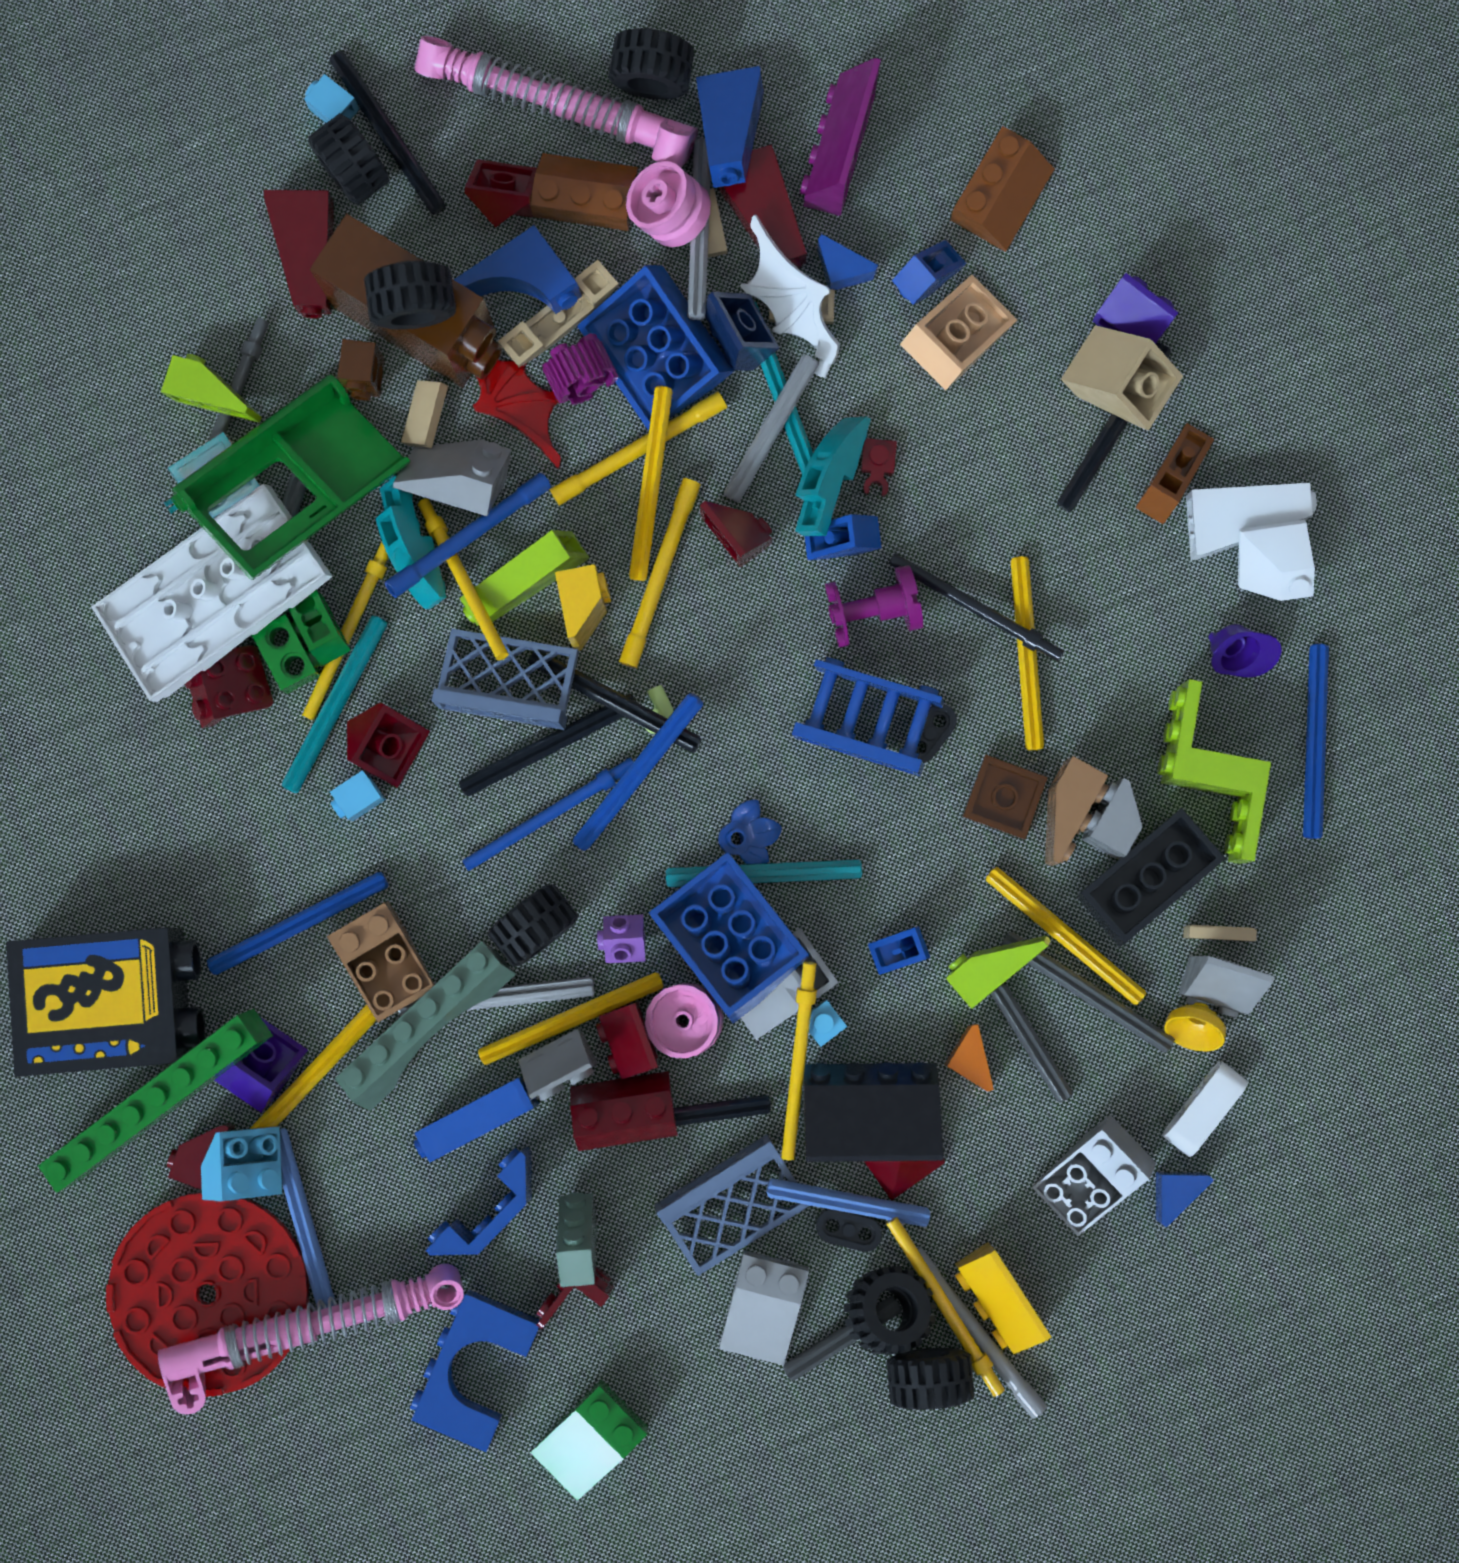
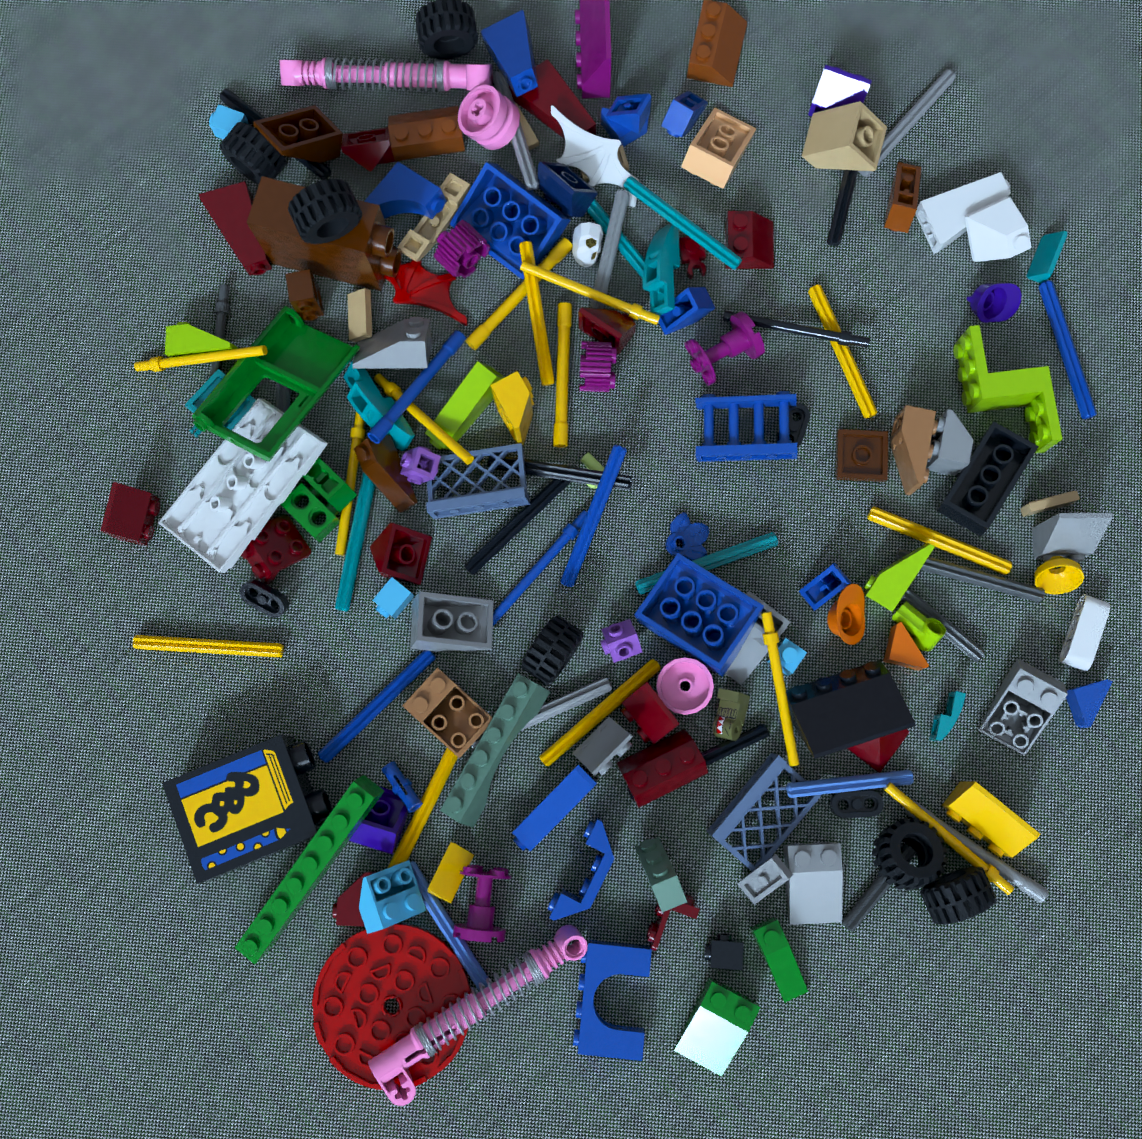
camera: 15 degrees left, 5 degrees down
(60, 588) = (130, 514): none -> dark red slope
(110, 783) = (208, 646): none -> yellow axle
(151, 400) = (160, 363): none -> yellow bar
(196, 745) = (265, 599): none -> black plate
(292, 1013) = (410, 800): none -> blue pin
(325, 1157) = (448, 876): none -> yellow slope
(347, 1218) = (481, 914): none -> magenta piece
(397, 632) = (383, 468): none -> reddish brown slope
(419, 153) = (302, 134): none -> reddish brown slope
(420, 850) = (451, 623): none -> light grey slope
(440, 638) = (419, 465): none -> medium lavender brick
(627, 1356) = (724, 952): none -> black brick
(691, 1385) = (779, 958): none -> green slope
(703, 579) = (596, 366): none -> magenta brick
(704, 1285) = (765, 879): none -> light grey plate
(729, 1072) = (730, 714): none -> olive leg
(744, 410) = (587, 243): none -> white rock
(775, 521) = (635, 311): none -> yellow bar
(854, 253) = (631, 111): none -> blue slope
(873, 424) = (682, 223): none -> teal axle
(916, 996) = (847, 615): none -> orange piece
(956, 471) = (750, 238): none -> dark red slope
(989, 1166) = (944, 723): none -> teal slope
(1006, 1045) = (925, 631): none -> lime piece
(1230, 365) = (914, 115): none -> light grey axle
(1332, 611) = (1046, 256): none -> teal slope

